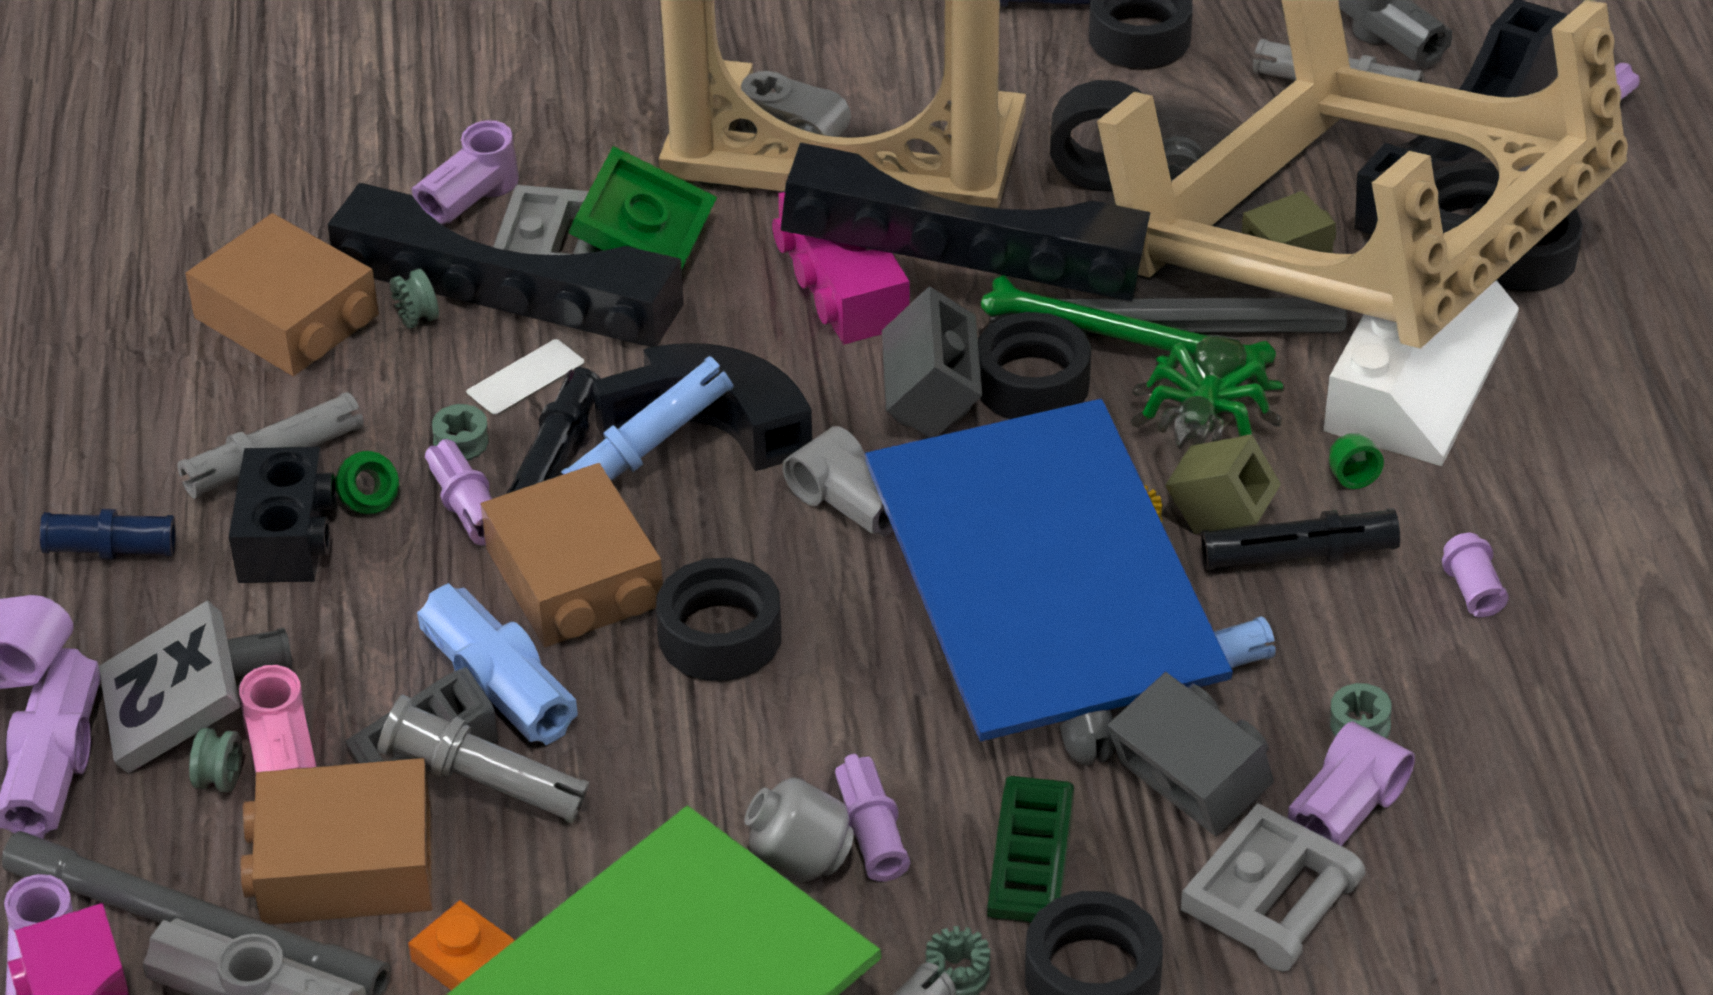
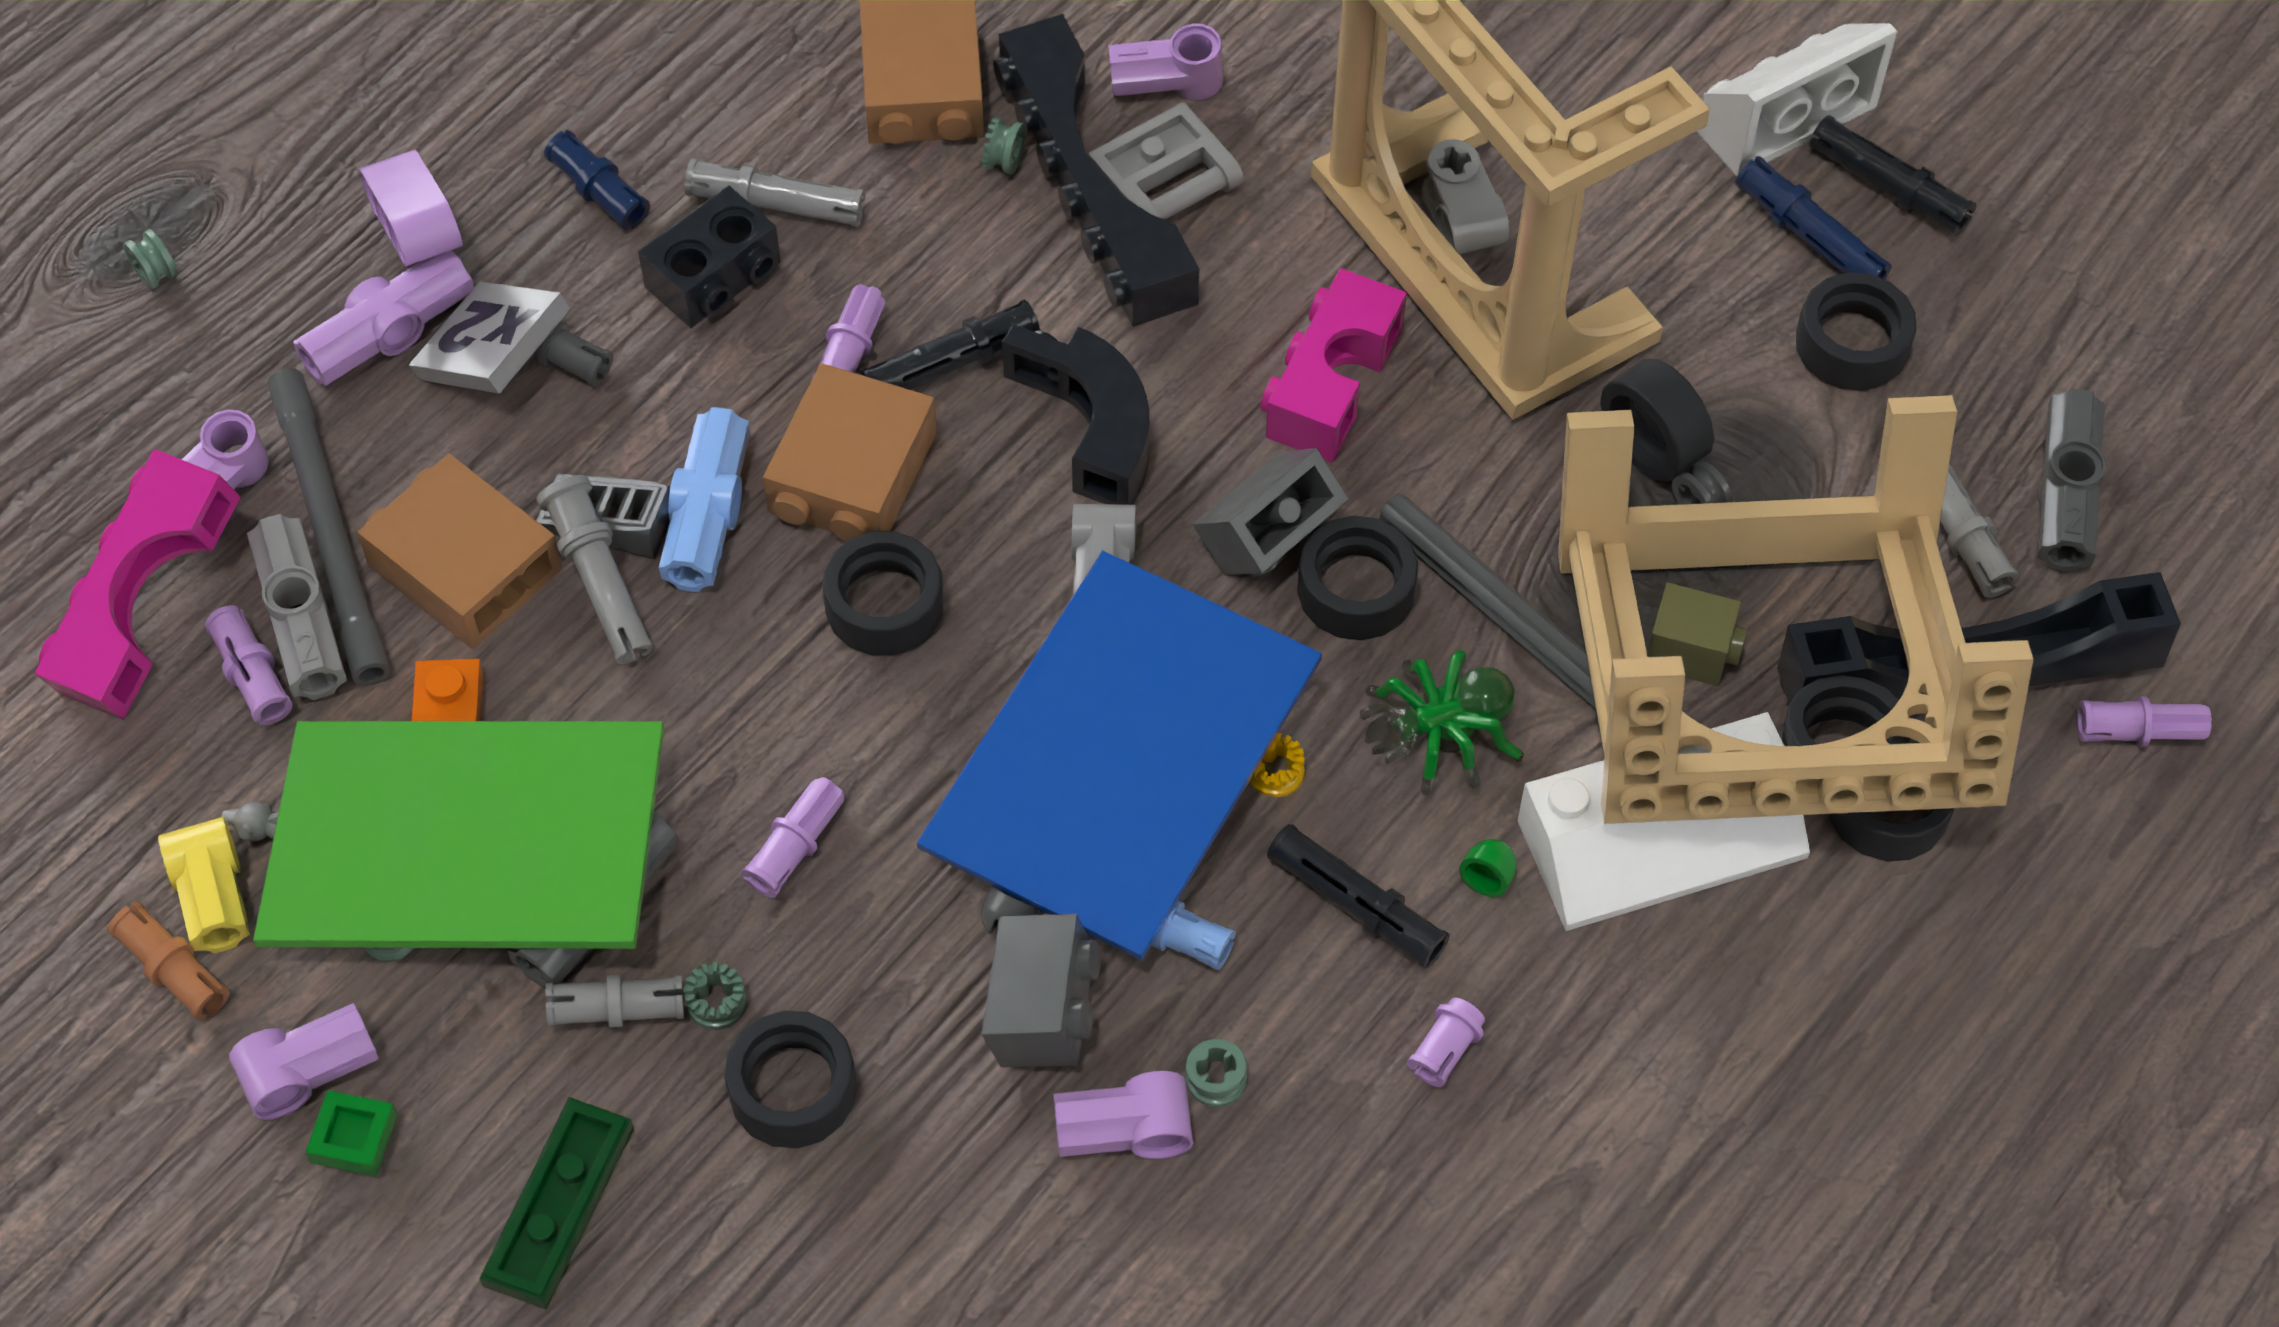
camera: 45 degrees right, 15 degrees up
(215, 759) = (461, 418): sand green bush -> none
(275, 719) = (513, 437): bright pink piece -> none
(384, 476) = (780, 283): green plate -> none
(454, 420) = (898, 299): sand green bush -> none
(525, 376) = (1015, 275): white sticker -> none
(641, 209) = (1236, 204): green plate -> none
(657, 421) = (983, 397): light blue pin -> none
(799, 829) = (720, 804): light grey head -> none
(1010, 300) = (1398, 506): green piece -> none
(1038, 809) = (865, 930): dark green slope -> none
(1072, 247) = (1496, 507): black arch -> none
(1223, 484) = (1345, 801): olive brick -> none
(1254, 871) = (973, 1118): light grey plate -> none

